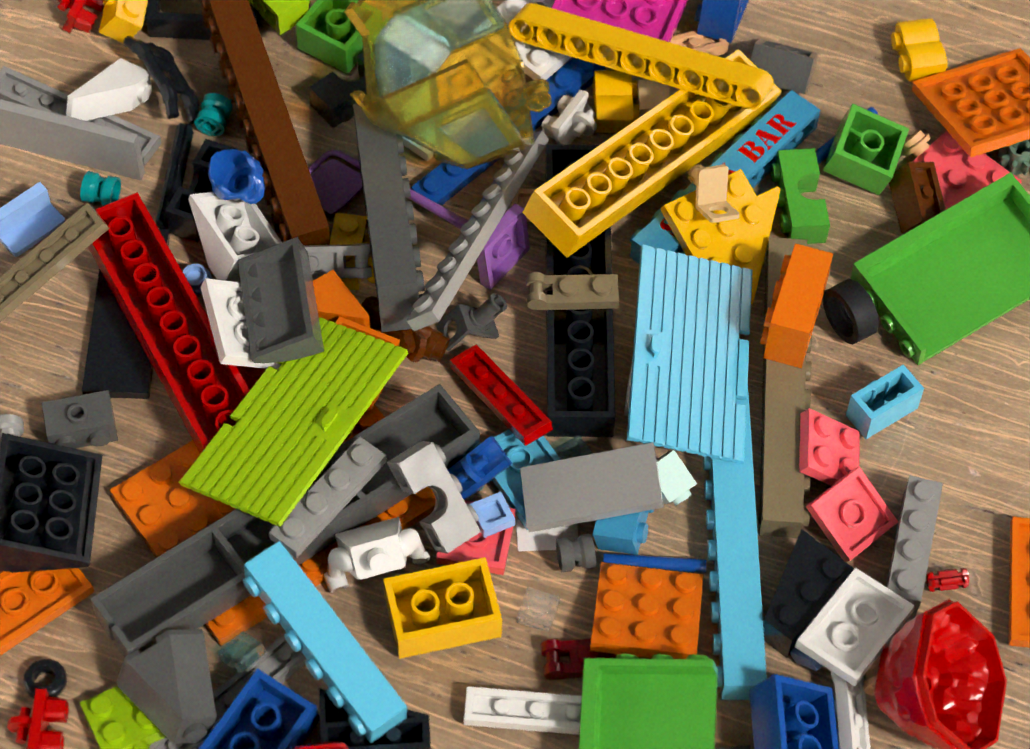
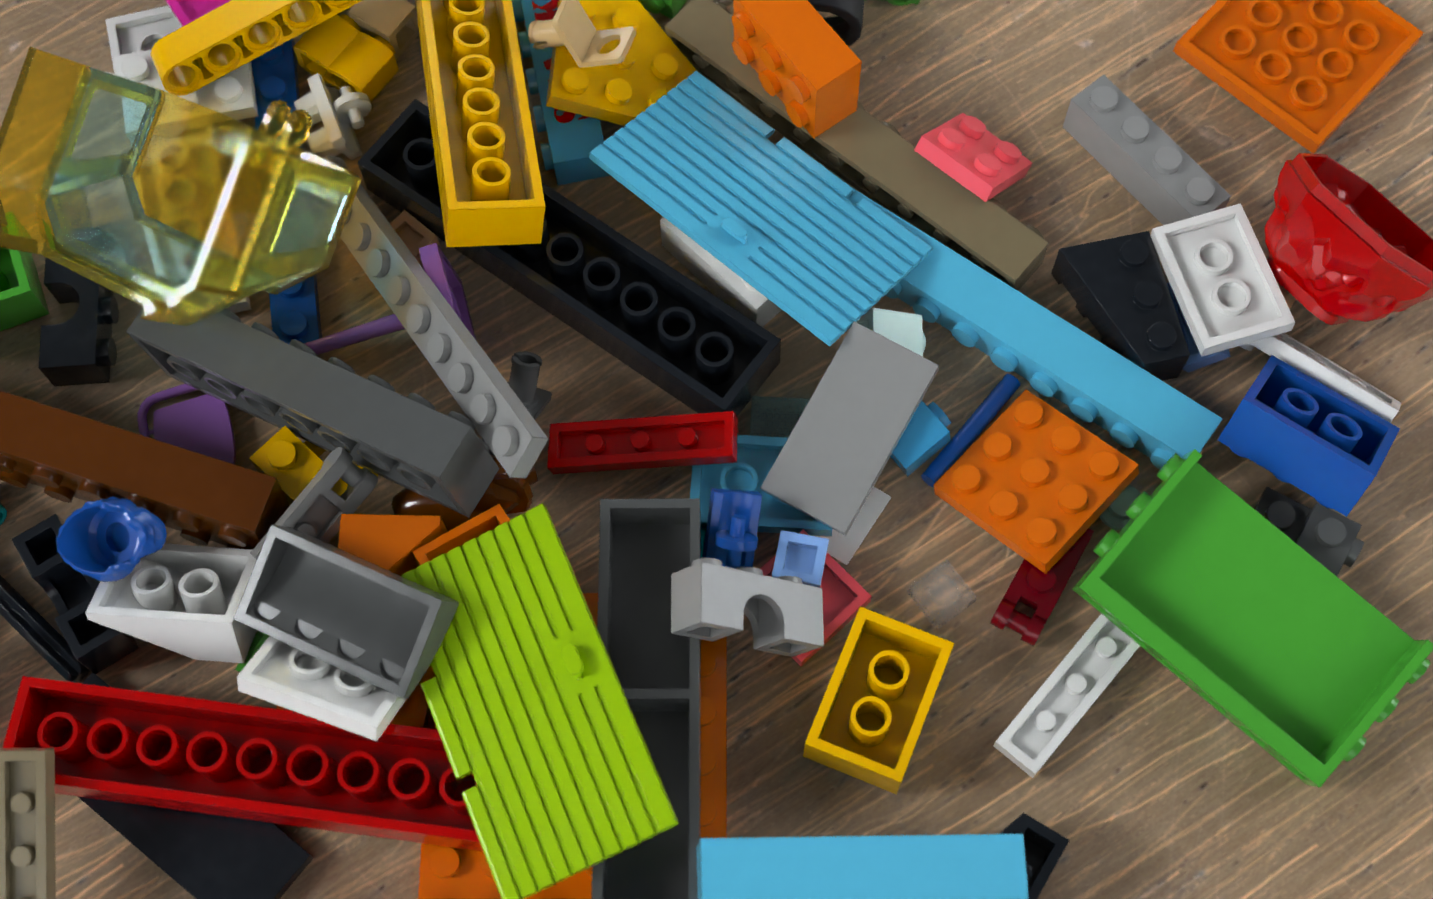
camera: 50 degrees left, 10 degrees up
(196, 275) = (193, 681): light blue plate -> none
(329, 496) = (663, 725): light grey plate -> none
(372, 552) = (760, 733): white torso -> none
(572, 291) = (584, 269): dark tan plate -> none
(575, 552) = (905, 502): dark grey wheel -> none
(852, 514) = (1065, 189): coral plate -> none
(884, 401) = (954, 61): medium azure brick -> none
(947, 579) = (1204, 148): red piece -> none

